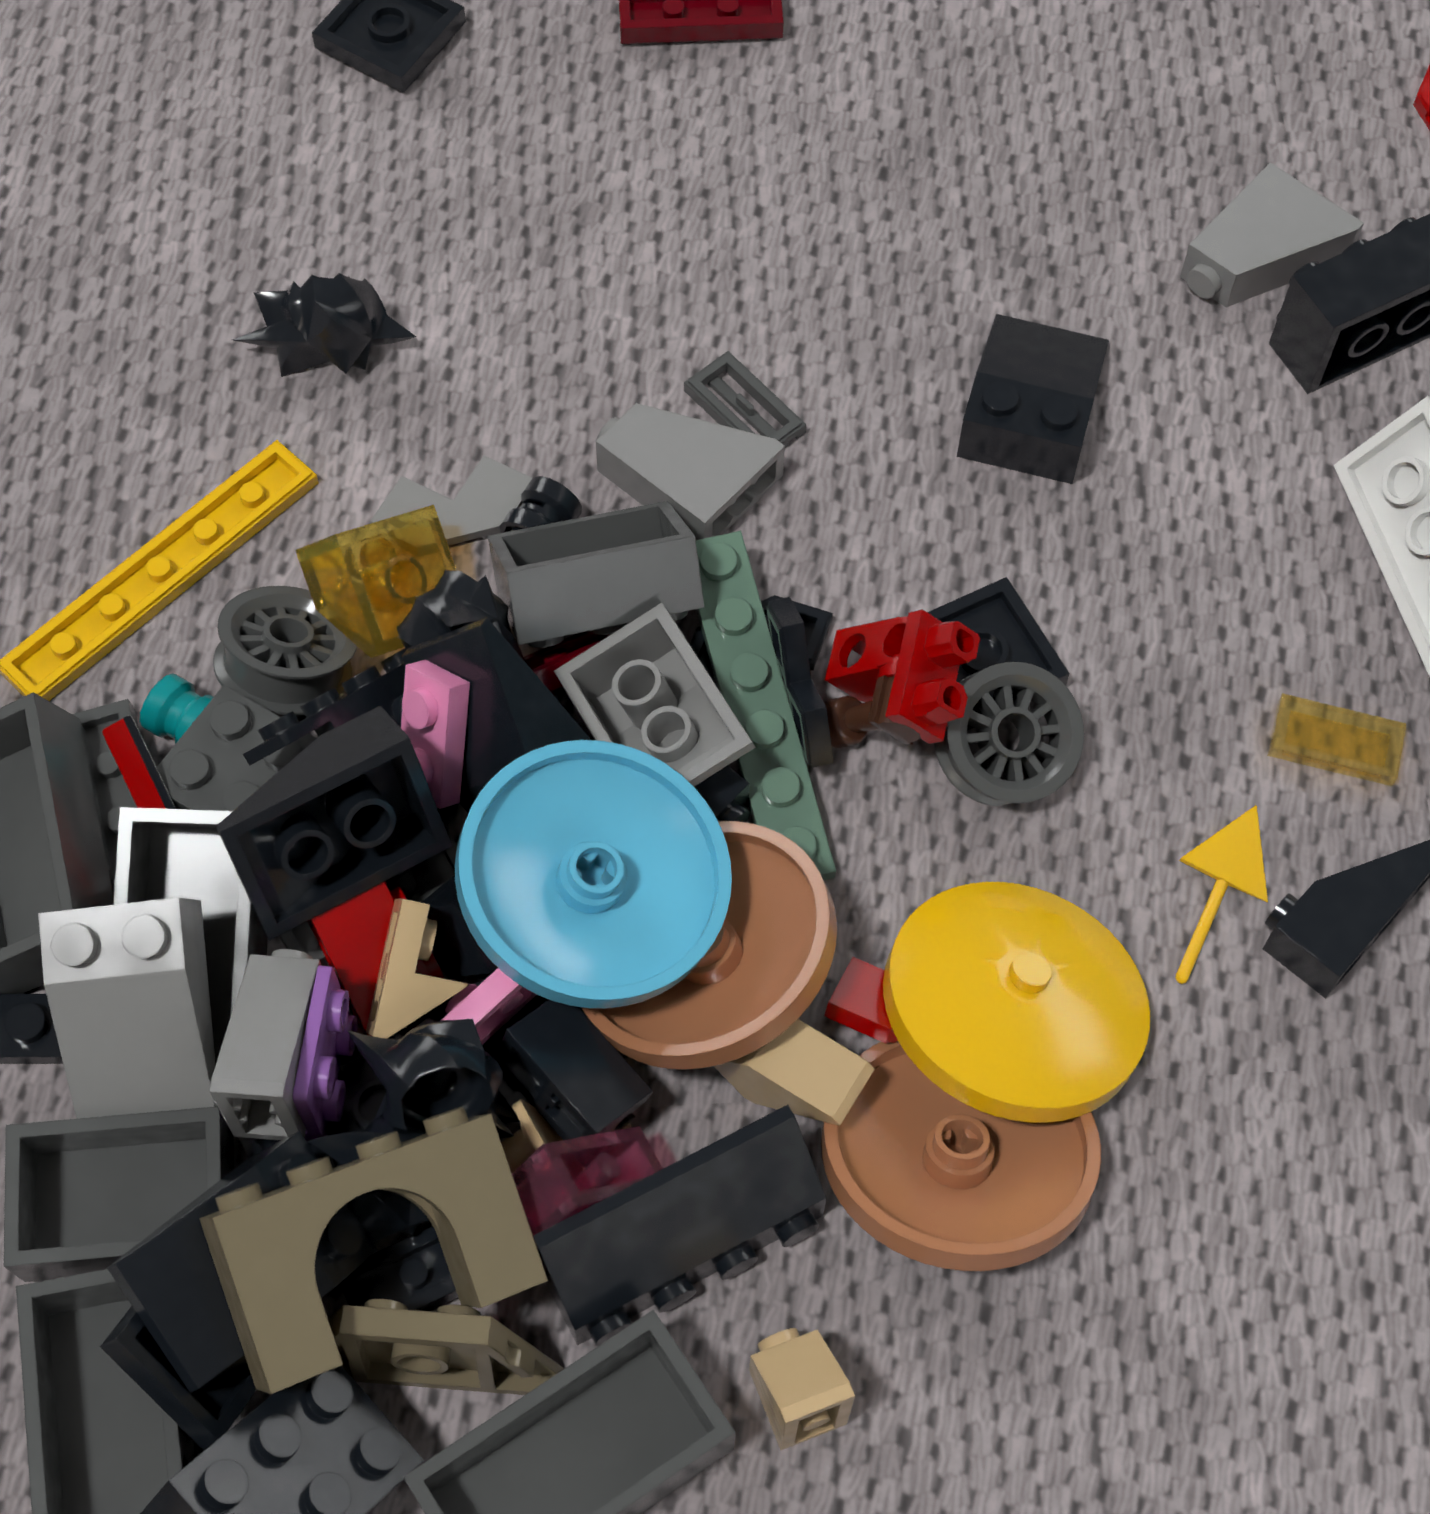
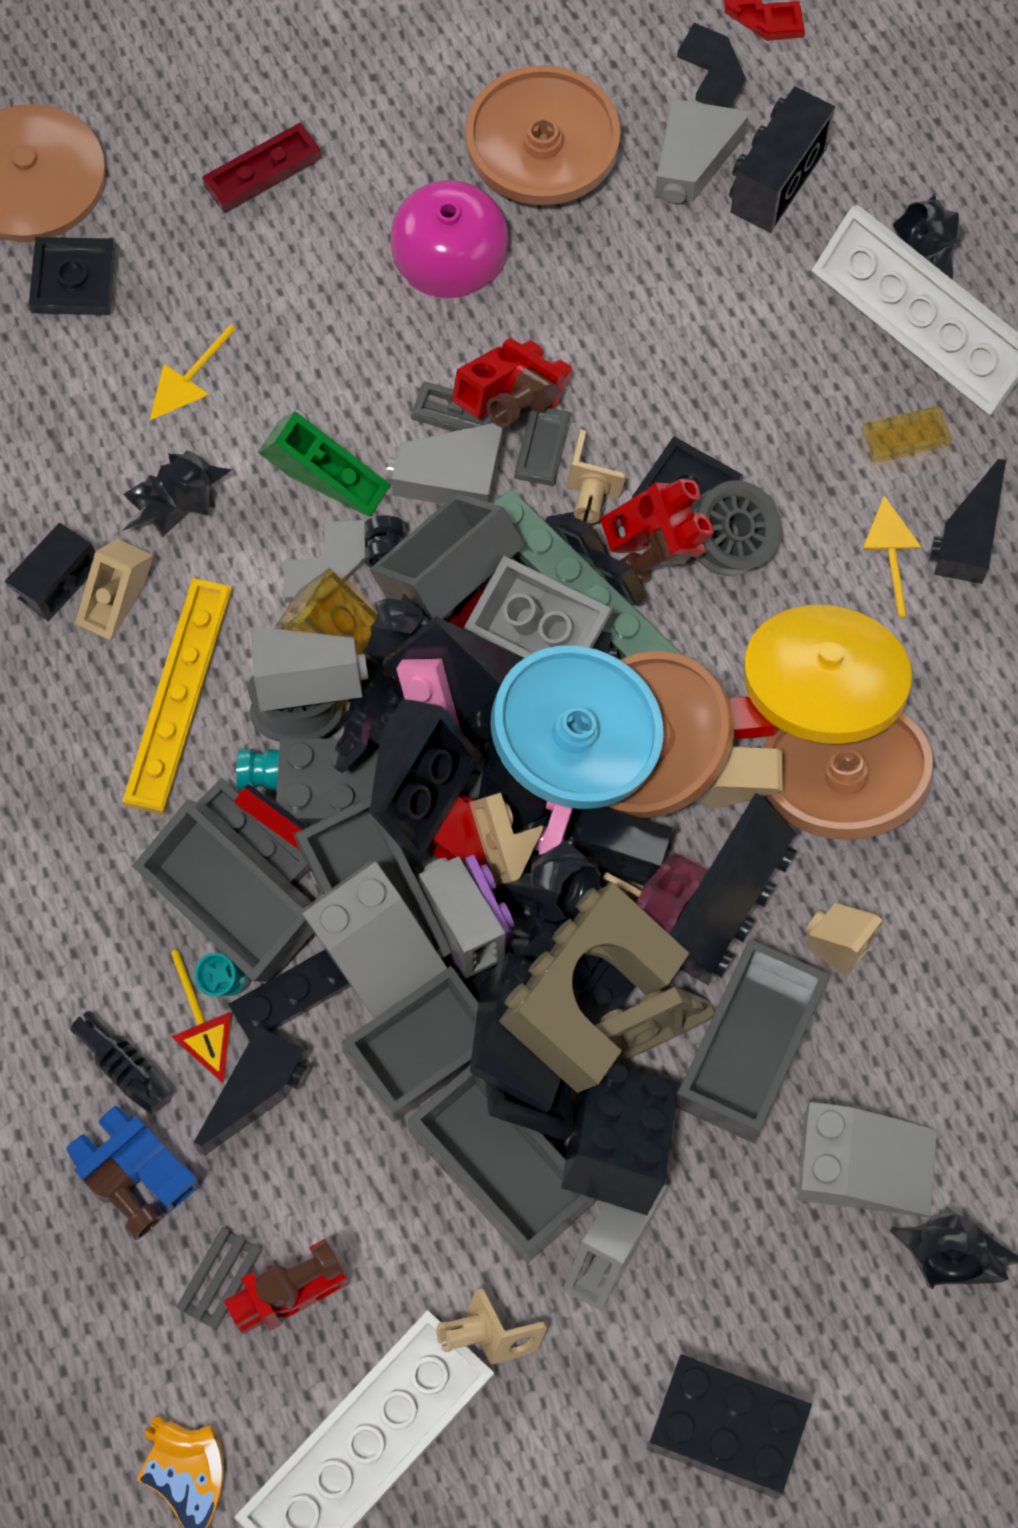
camera: 30 degrees left, 5 degrees up
(116, 347) = (52, 571): none -> black hinge
(171, 397) = (112, 587): none -> tan slope
(300, 607) = (304, 668): none -> light grey slope
(426, 218) = (178, 390): none -> yellow piece
(529, 385) = (322, 464): none -> green slope
(828, 505) = (542, 446): none -> dark grey tile
(831, 398) = (509, 381): none -> red hips
(856, 578) = (593, 484): none -> tan bracket
(874, 198) = (449, 239): none -> dark pink cylinder
(1032, 398) = (620, 317): black slope -> none
(1073, 131) = (542, 135): none -> nougat dish
(1369, 149) = (714, 53): none -> black tile

